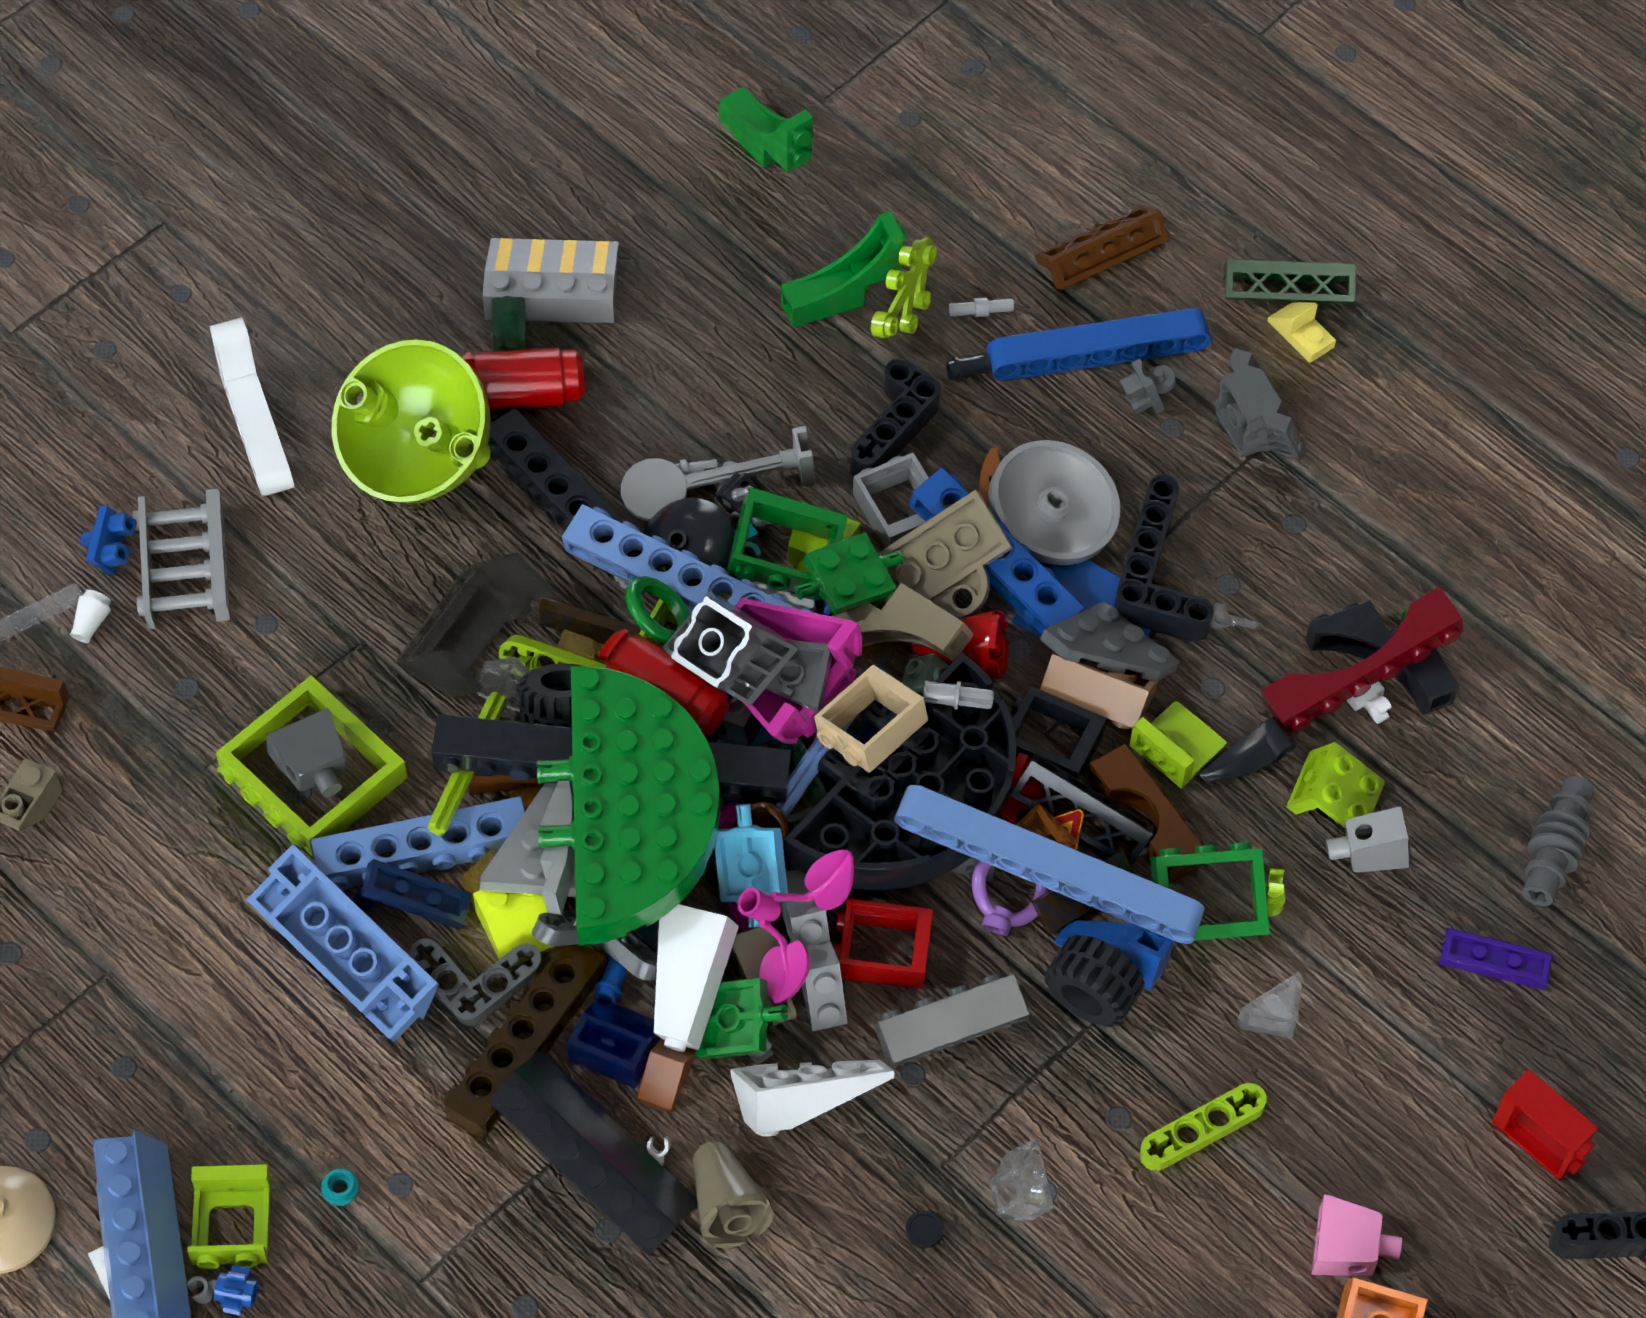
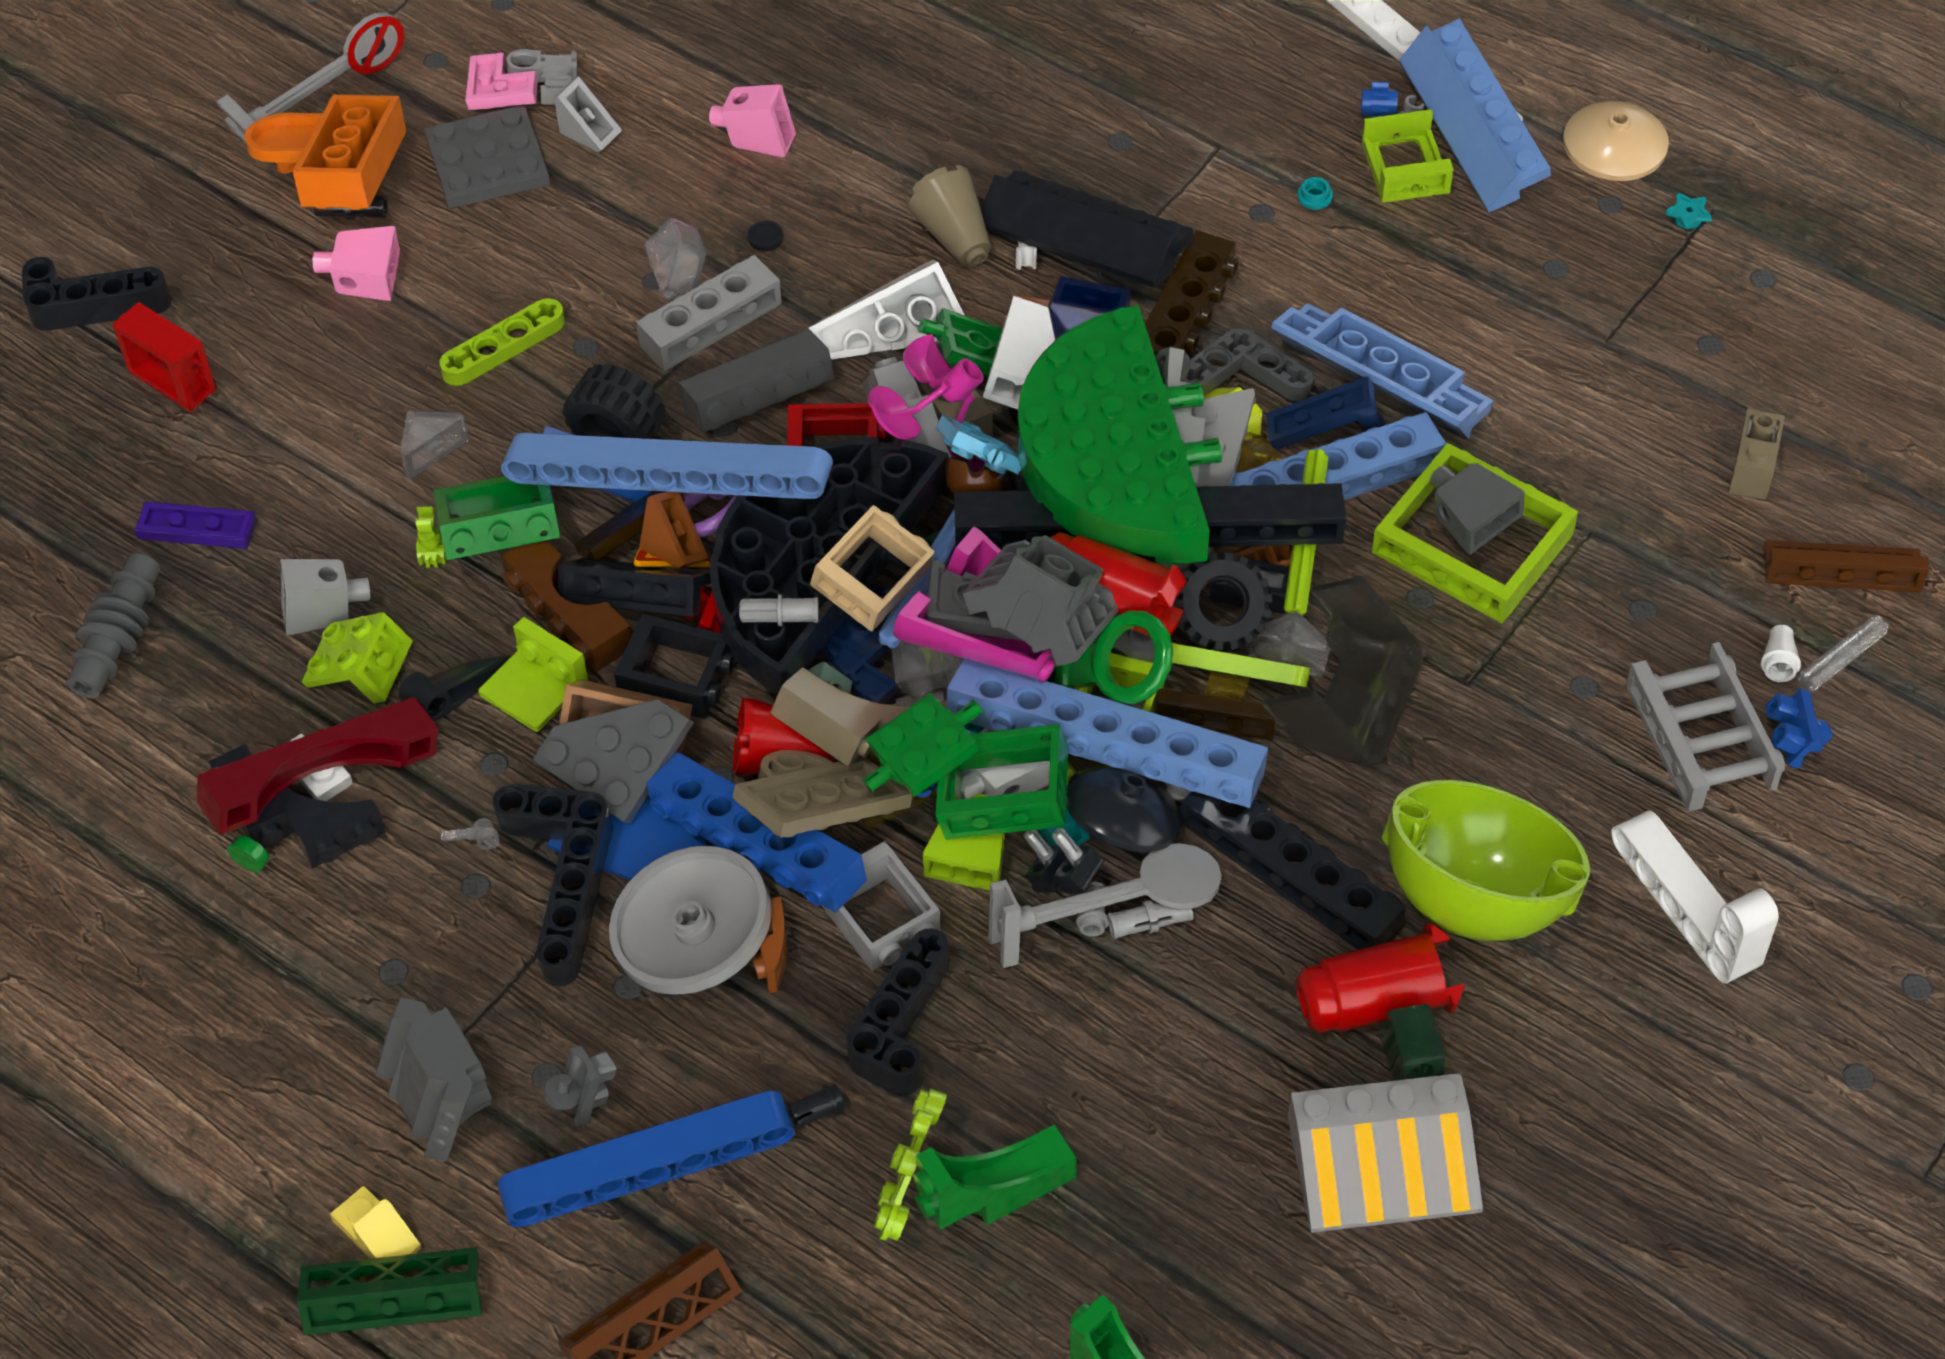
camera: 175 degrees right, 5 degrees down
(981, 307) = (808, 1197): light grey bar -> none
(1033, 1086) = (708, 313): none -> light grey brick

